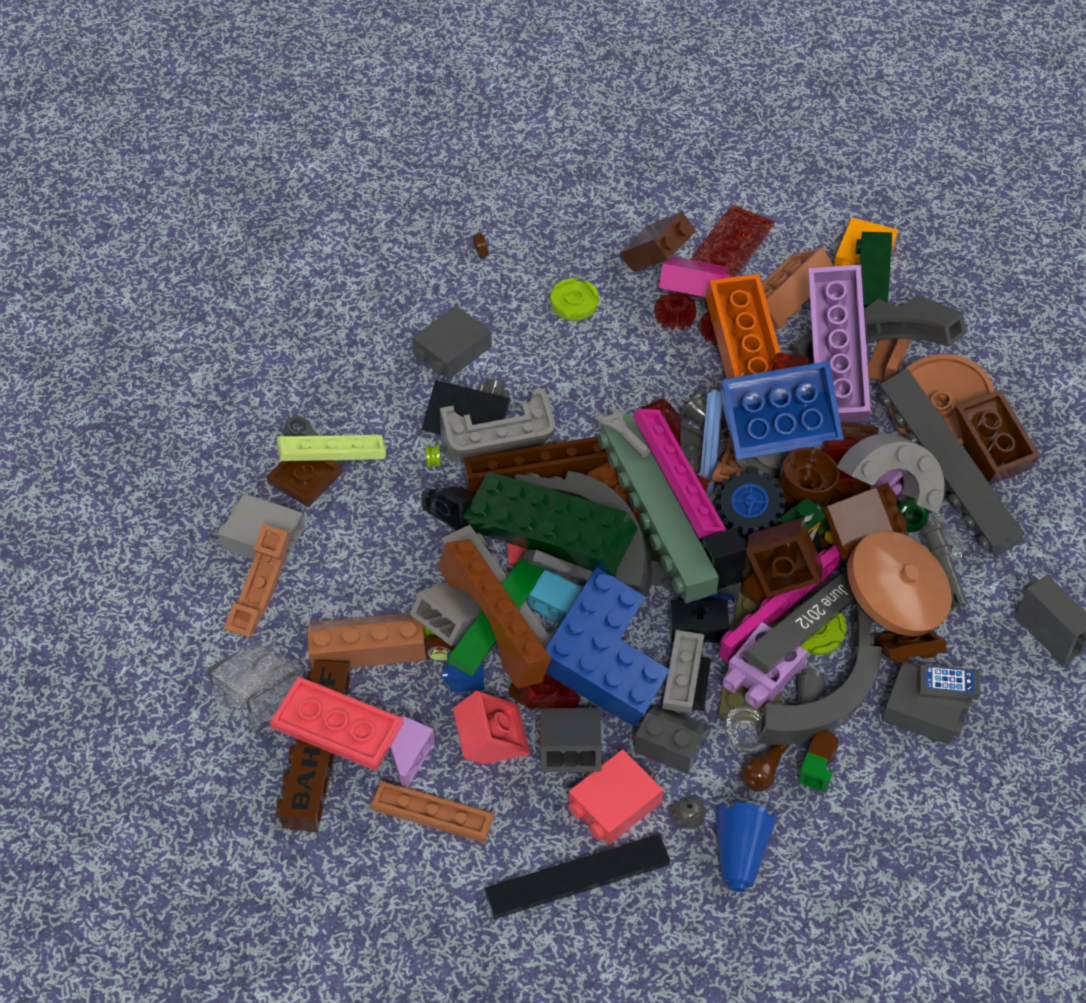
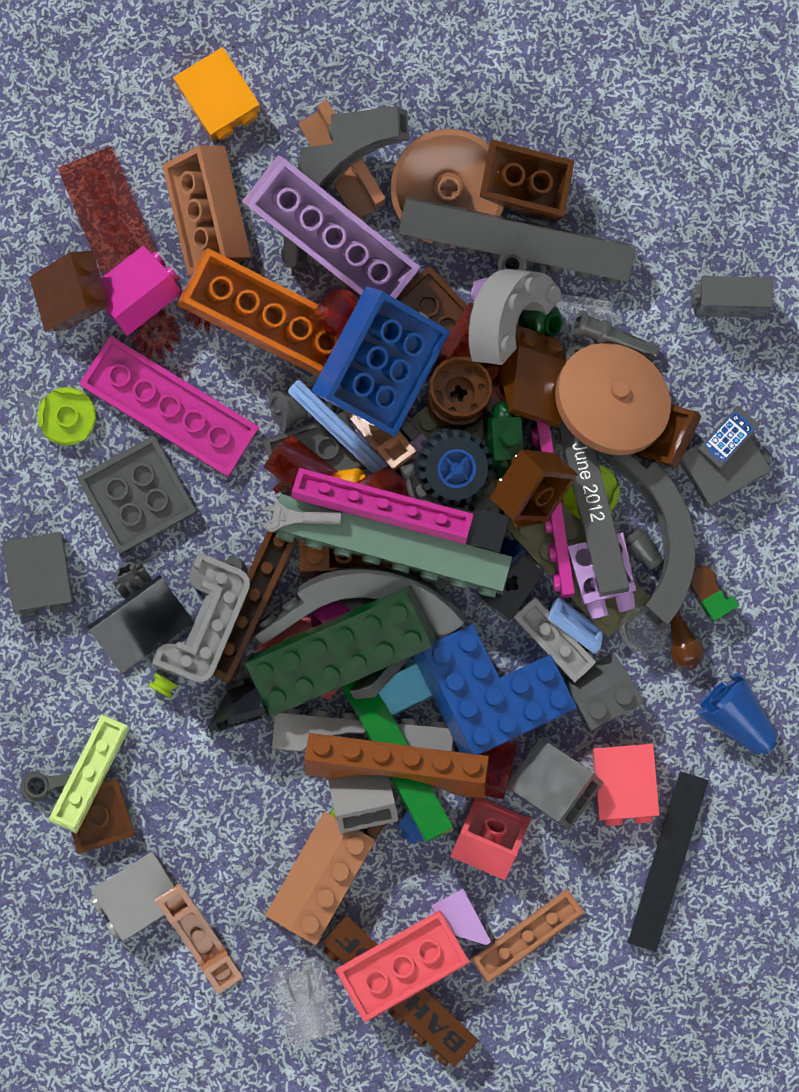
camera: 55 degrees left, 30 degrees up
(556, 363) = (136, 495): none -> dark grey plate
(633, 347) = (169, 406): none -> dark pink plate
(690, 817) = (672, 739): dark grey animal -> none
(708, 678) = (576, 625): none -> light blue tile
(875, 264) = (259, 119): dark green brick -> none

